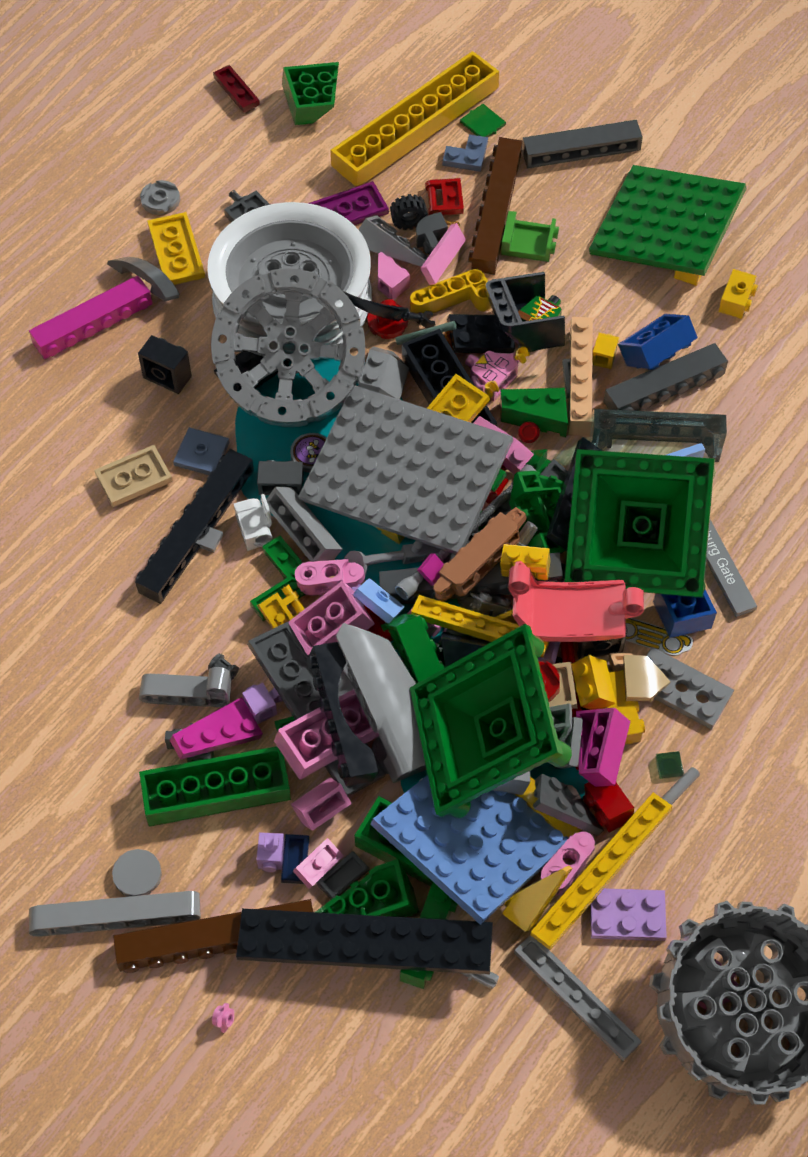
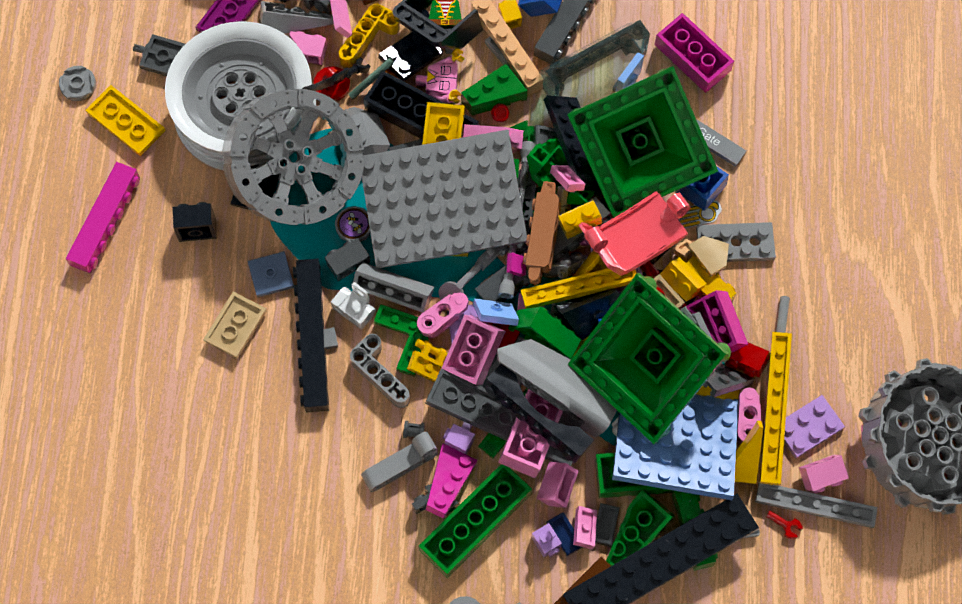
camera: 35 degrees left, 10 degrees up
(161, 284) = (117, 153): dark grey slope -> none
(230, 600) = (382, 375): none -> light grey beam
(530, 997) = (785, 524): none -> red bar
(542, 518) = (567, 178): none -> bright pink plate
(606, 968) = (823, 473): none -> bright pink brick
(669, 765) = (764, 303): clear green tile -> none
(767, 483) = (694, 52): none -> dark pink brick

